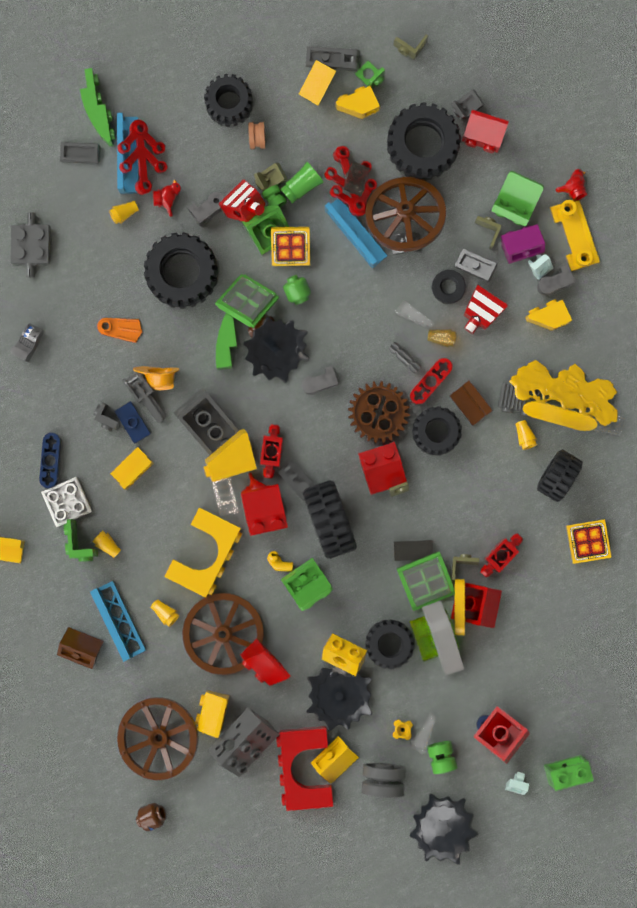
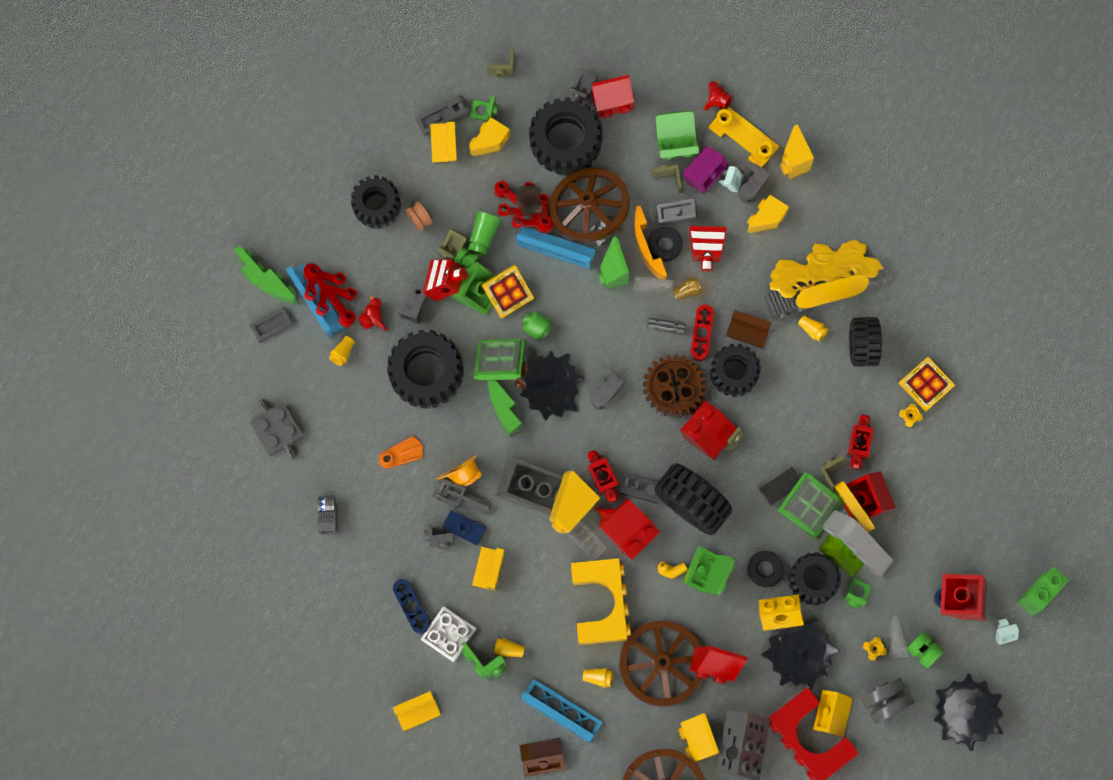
camera: 30 degrees left, 10 degrees down
(344, 609) = (758, 579): none -> black tyre
(391, 280) = (613, 268): none -> bright green slope
(412, 682) = (853, 600): none -> bright green bracket
(428, 301) = (655, 266): none -> light orange slope
(563, 558) = (912, 409): none -> yellow plate
(607, 280) = (797, 155): none -> yellow slope

